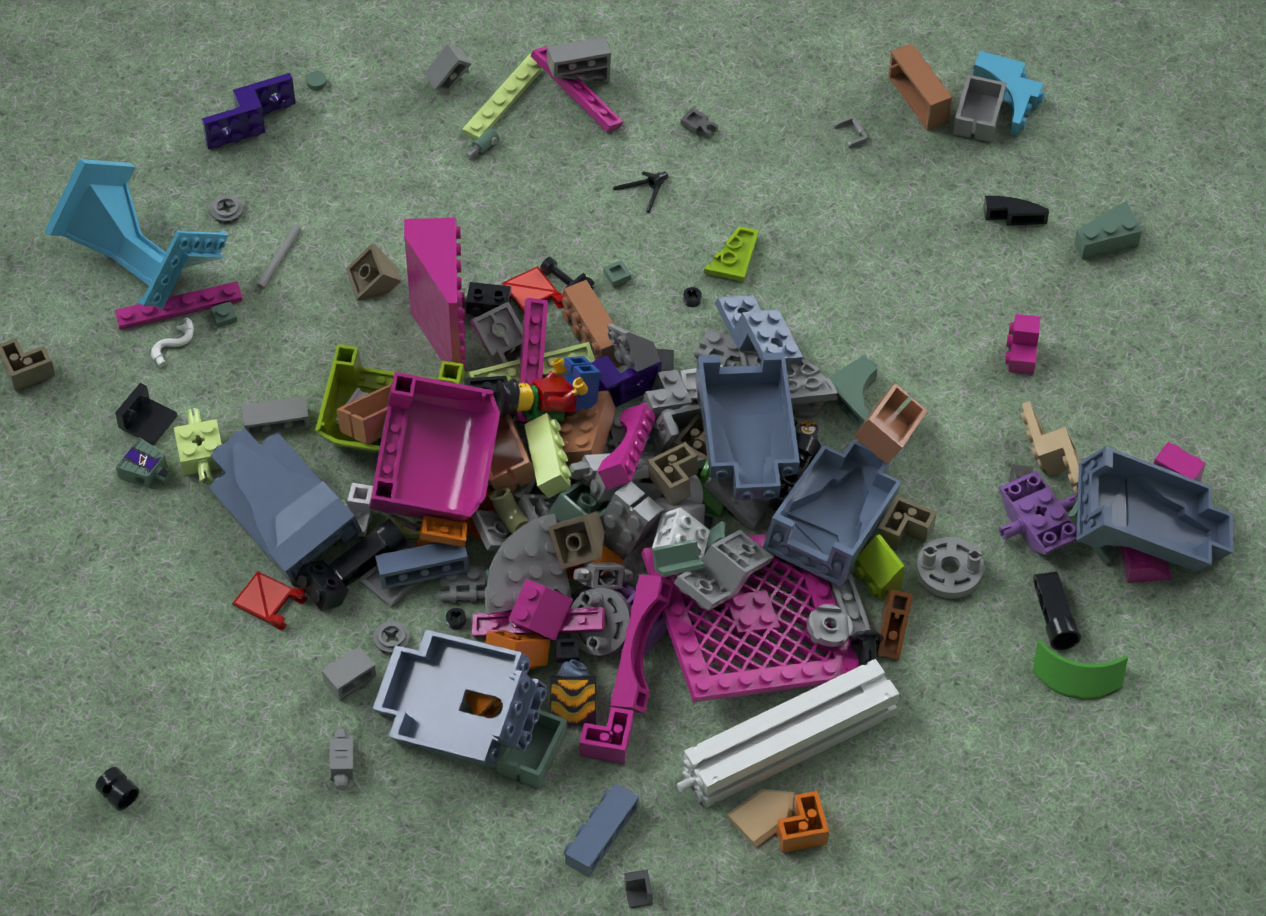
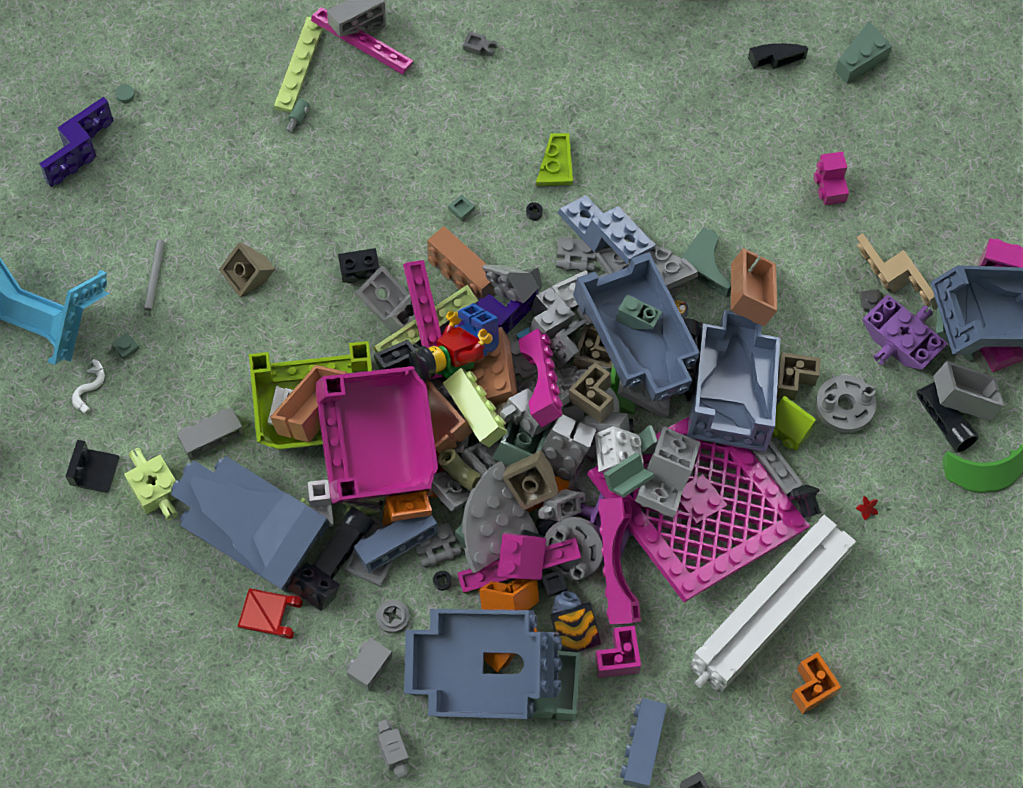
camera: 20 degrees left, 10 degrees up
(143, 465) = (108, 516): sand green torso -> none
(179, 305) = (84, 347): dark pink plate -> none
(232, 202) = (93, 235): light grey gear -> none
(434, 284) = (319, 275): dark pink slope -> none
(448, 68) = (241, 52): light grey brick -> none
(533, 285) = (392, 244): coral flag -> none
(549, 266) = (400, 217): black bar -> none
(653, 181) = (461, 111): black plant -> none
(749, 410) = (637, 314): none -> sand green slope
(760, 813) = (773, 683): tan tile -> none
(826, 636) = (768, 502): light grey plate -> none
(857, 126) = (620, 14): light grey piece -> none
(894, 623) = (819, 468): dark orange slope -> none
(933, 674) = (867, 507): none -> red plant
(1085, 586) = (968, 391): none -> light grey piece

